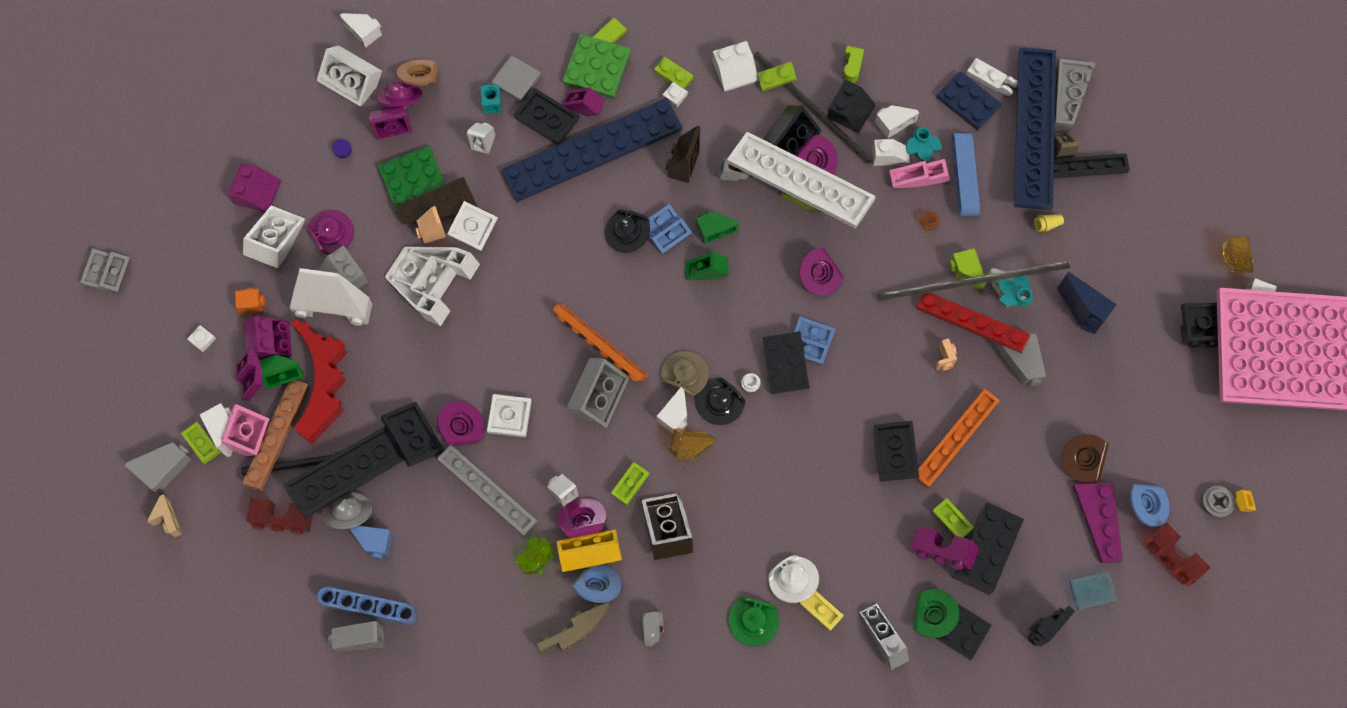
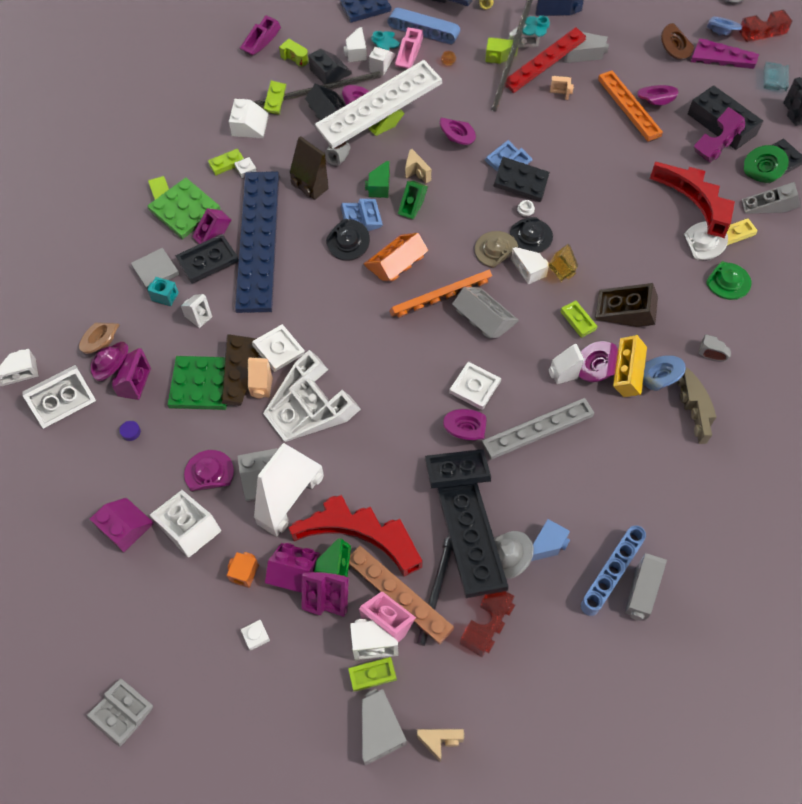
camera: 65 degrees left, 10 degrees down
(535, 556) = (625, 415): clear neon green plate -> none
(626, 283) = (397, 256): none -> slope
(752, 251) = (417, 166): none -> tan slope
(851, 559) = (690, 182): none -> red arch
(860, 20) = (261, 35): none -> magenta slope
(896, 451) = (626, 139): black plate -> none
(952, 519) = (692, 130): lime plate -> none
(986, 462) = (658, 94): none -> magenta hat

